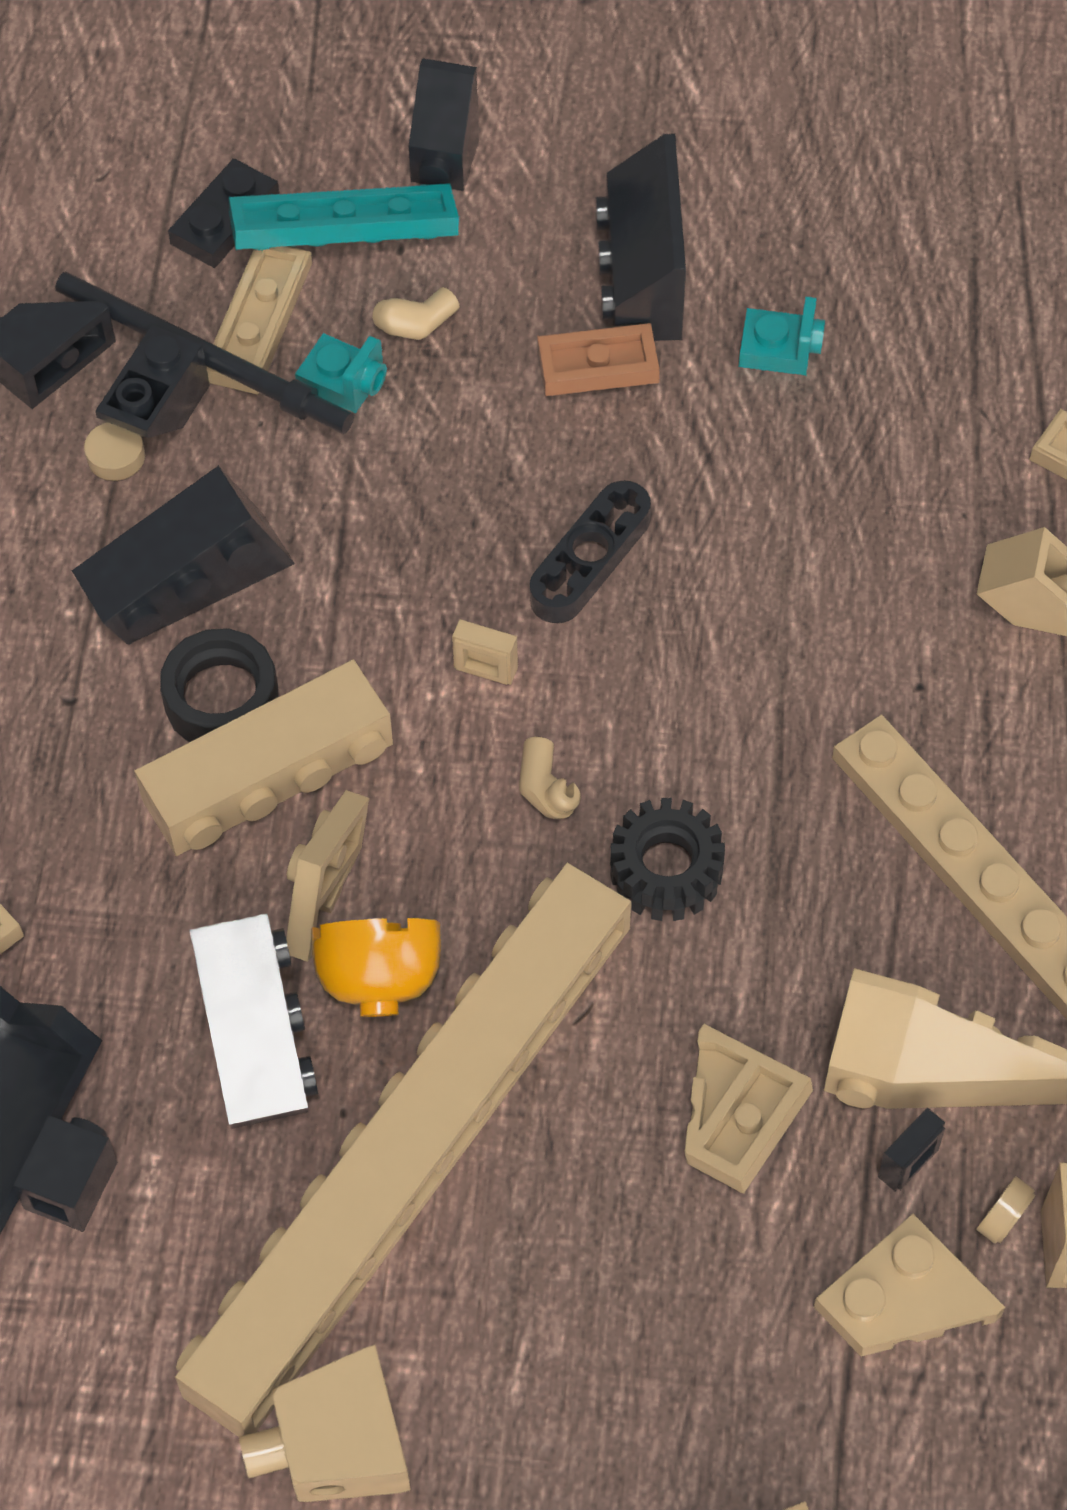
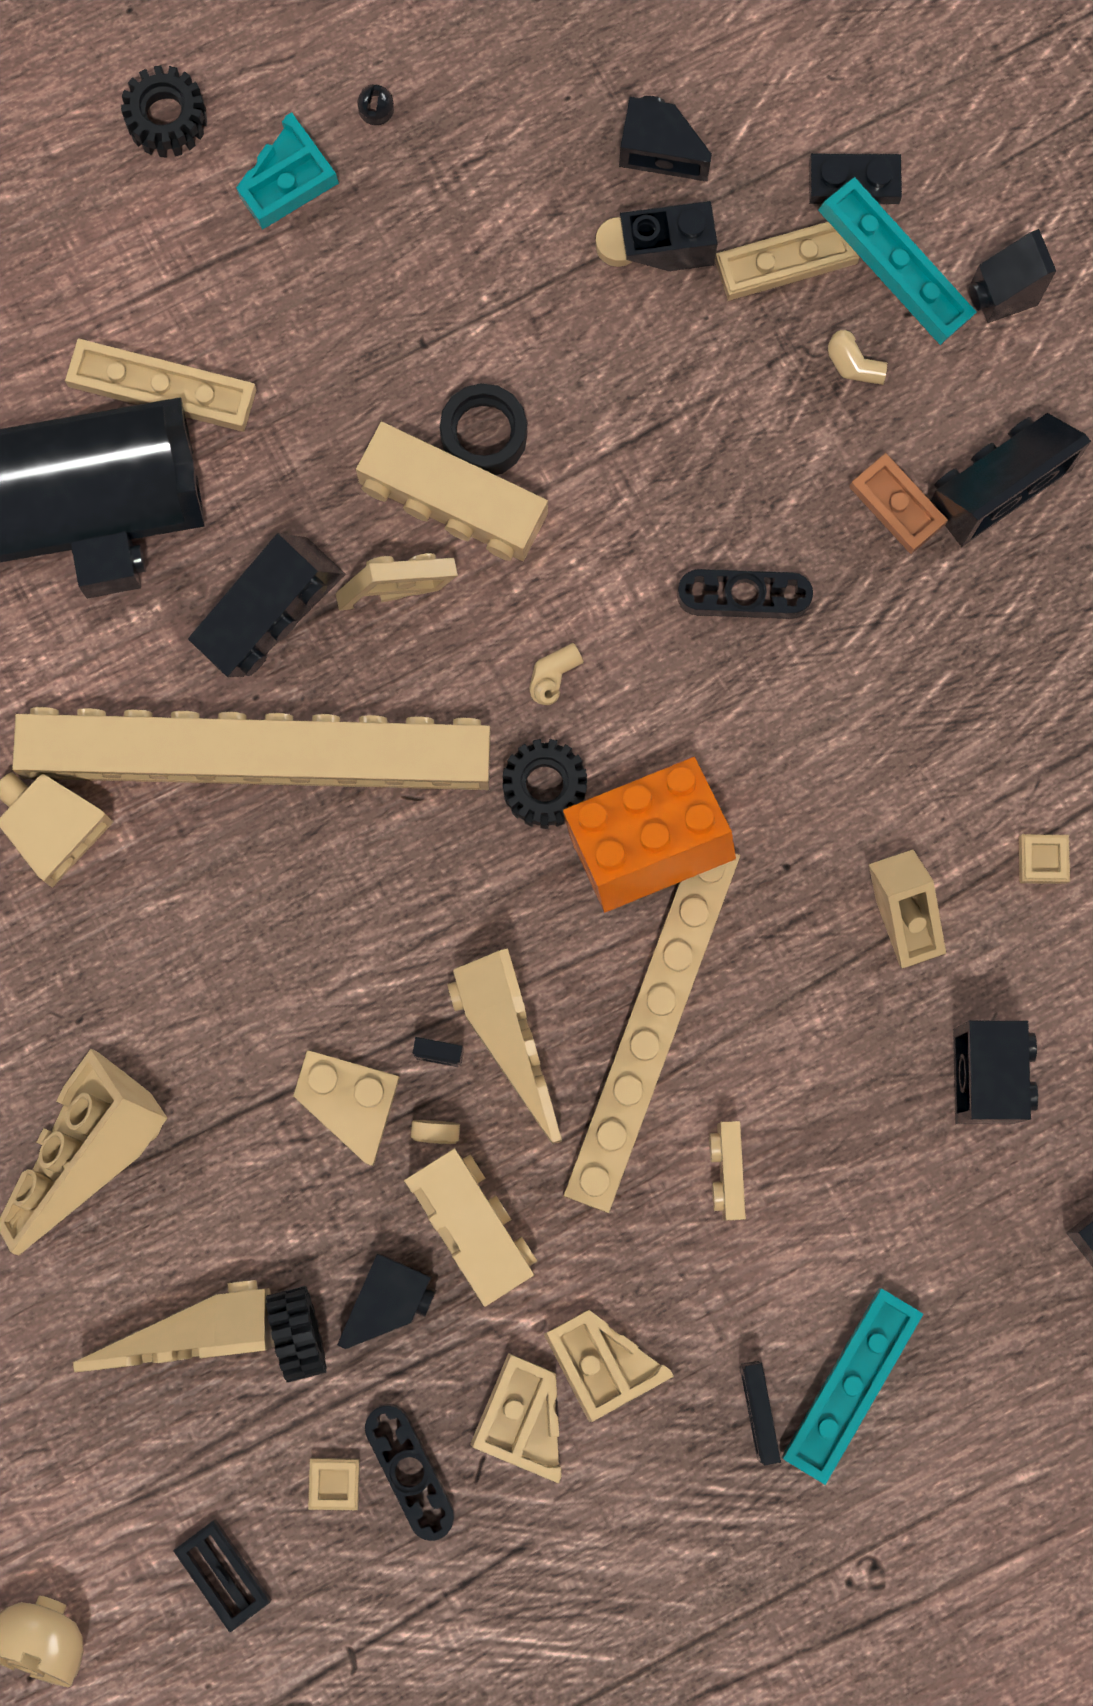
camera: 55 degrees right, 20 degrees up
(182, 559) = (557, 344): black wedge -> none
(294, 396) = (729, 328): black bar -> none
(344, 371) = (777, 343): teal bracket -> none
(376, 961) = (352, 654): light orange cylinder -> none
(485, 652) = (617, 577): tan tile -> none
(739, 1108) = (402, 931): tan wing -> none
(781, 339) = (1001, 613): teal bracket -> none
(803, 777) = (650, 834): none -> orange brick

